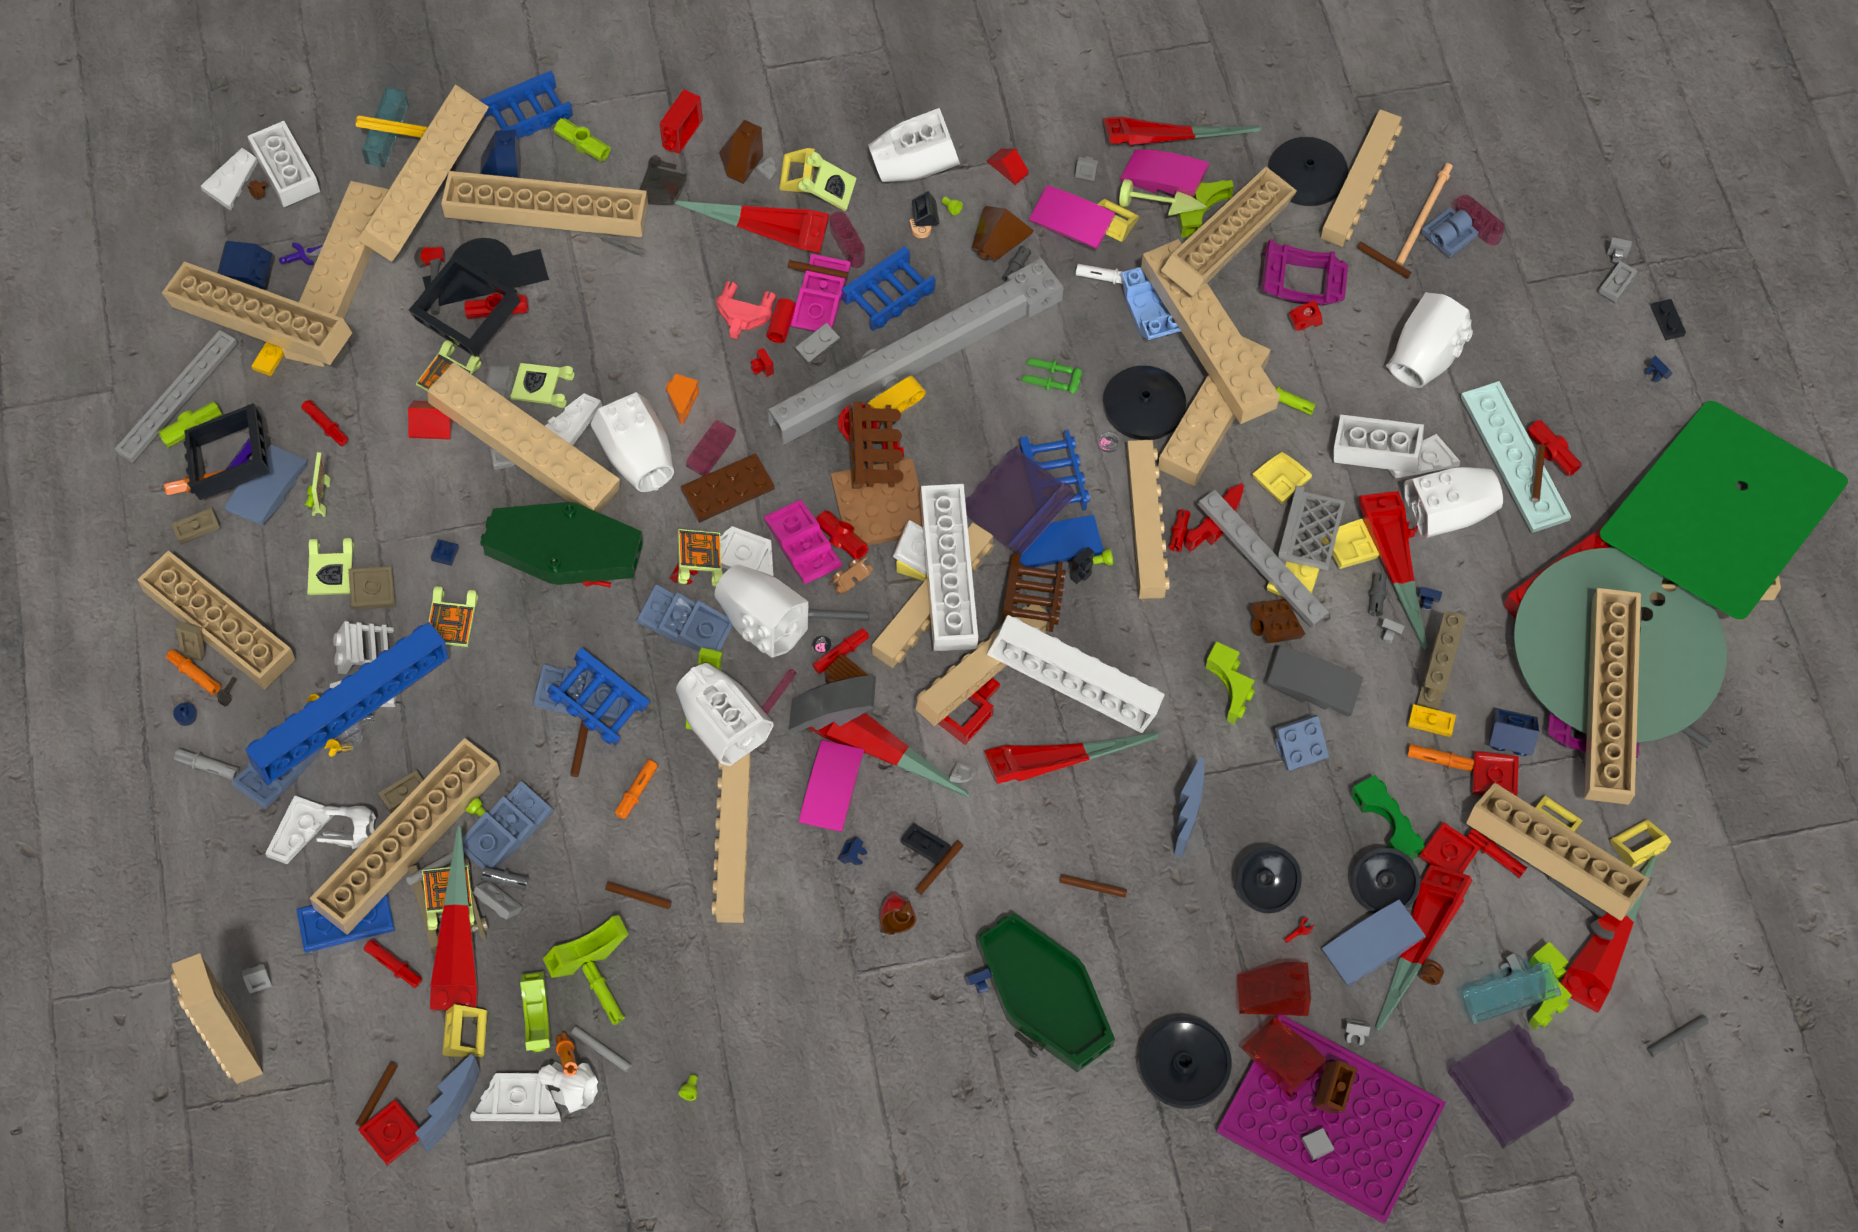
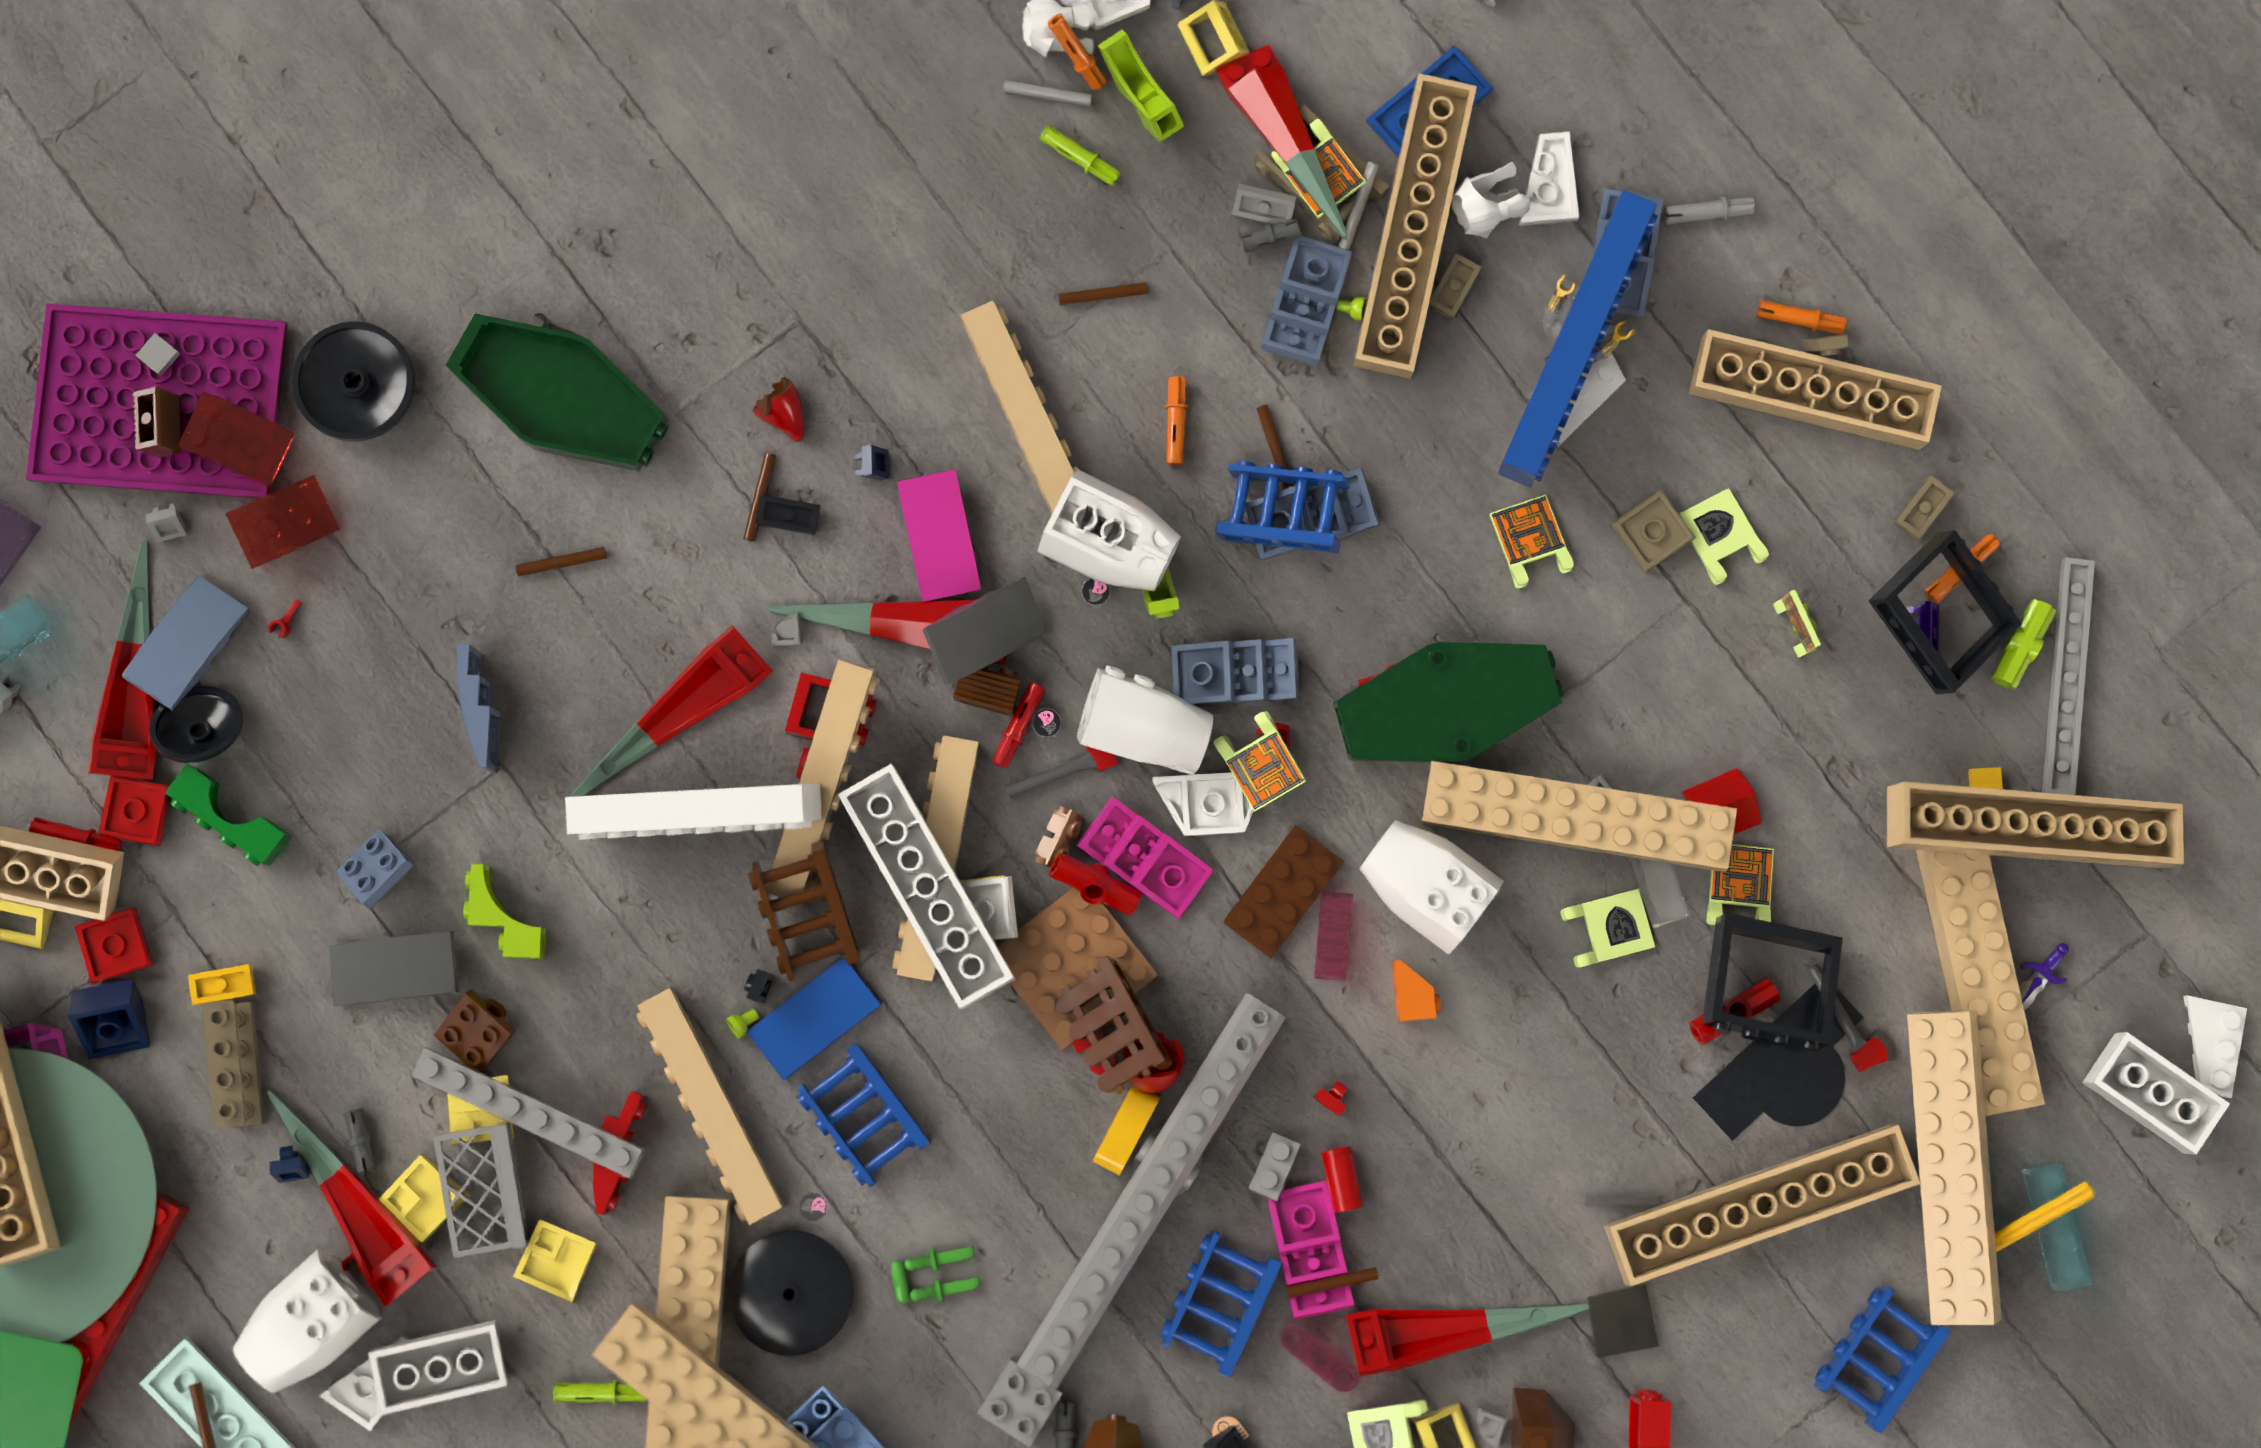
camera: 150 degrees right, 20 degrees up
(185, 714) = (1776, 262): dark blue tile -> none
(223, 696) = (1745, 304): clear smoke hand -> none
(245, 263) = (2103, 902): dark blue slope -> none
(257, 189) = (2167, 1039): reddish brown tile -> none
(264, 495) = (1864, 635): sand blue slope -> none
(320, 418) = (1854, 731): red axle -> none
(350, 644) = (1627, 432): white plate -> none
(392, 963) = (1341, 76): red axle -> none
(444, 552) = (1592, 625): dark blue tile -> none
(502, 155) = (1858, 1243): dark blue slope -> none
(575, 418) = (1537, 882): white wing -> none
(582, 139) = (1792, 1345): lime piece -> none
(595, 946) = (1124, 190): lime arch -> none
(656, 161) = (1653, 1359): clear smoke hand -> none
(689, 1091) = (920, 91): lime piece -> none
(742, 314) = (1399, 1161): coral connector -> none
(778, 691) = (1071, 627): clear pink bar -> none
(978, 978) = (645, 374): dark blue tile -> none
(1017, 501) = (886, 1040): clear purple panel -> none
(1179, 530) = (660, 1112): red pin -> none
(1280, 886) = (343, 659): black dish -> none
(1392, 629) = (321, 1093): light grey tile -> none
(1431, 975) = (102, 633): reddish brown tile -> none
(1440, 757) = (192, 937): orange axle -> none

